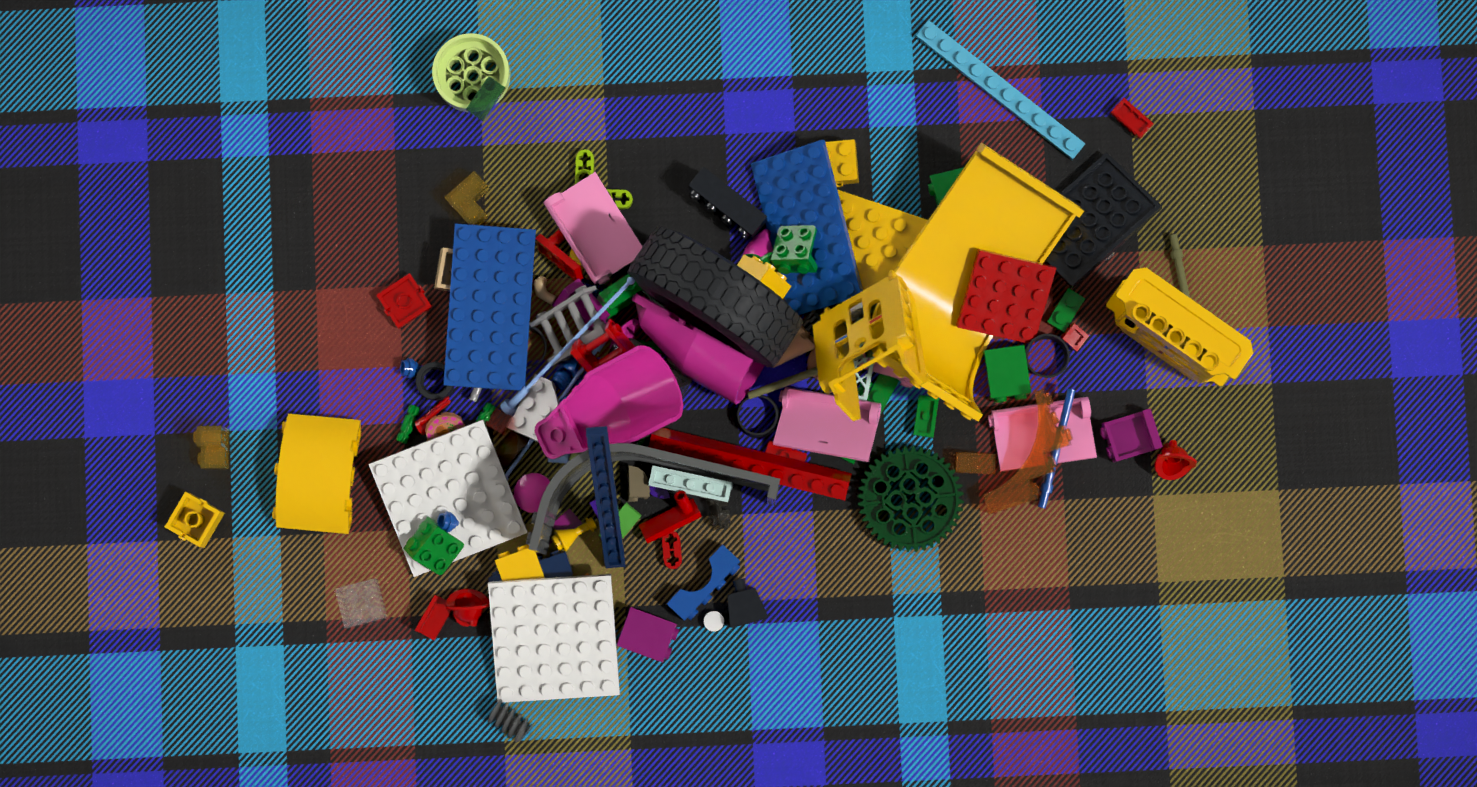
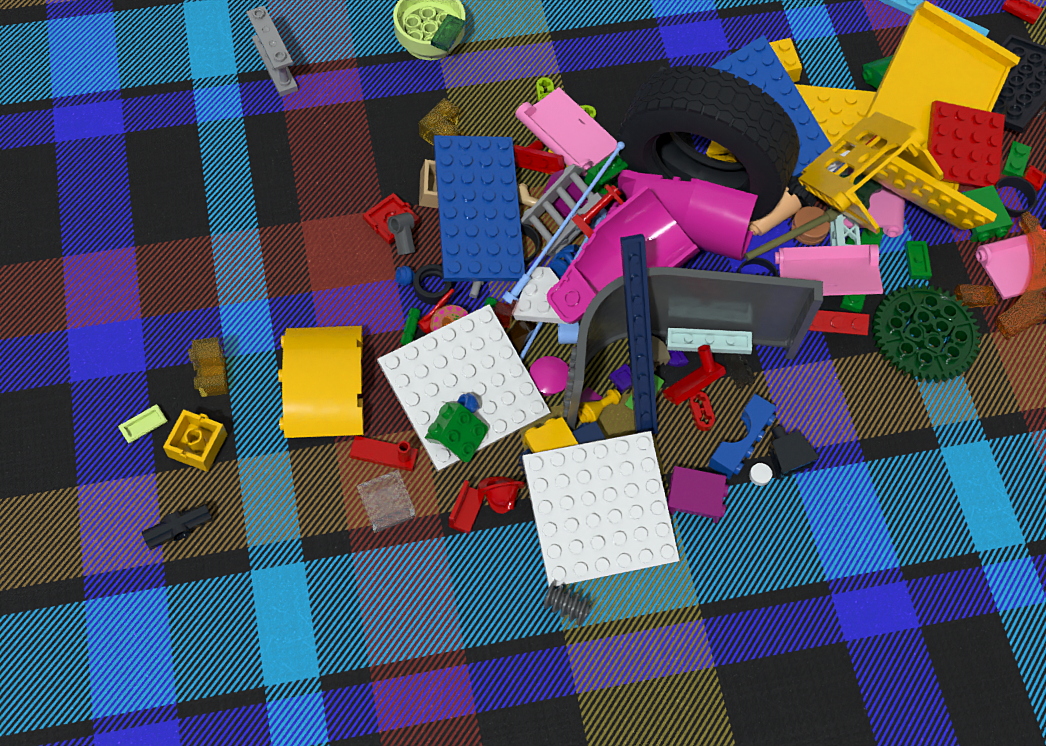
camera: 20 degrees left, 20 degrees down
(148, 492) = (142, 423): none -> yellowish green tile
(173, 598) = (177, 526): none -> black piece
(303, 90) = (272, 51): none -> light grey fence
(366, 551) = (384, 453): none -> red piece
(410, 320) = (401, 227): none -> dark grey piece

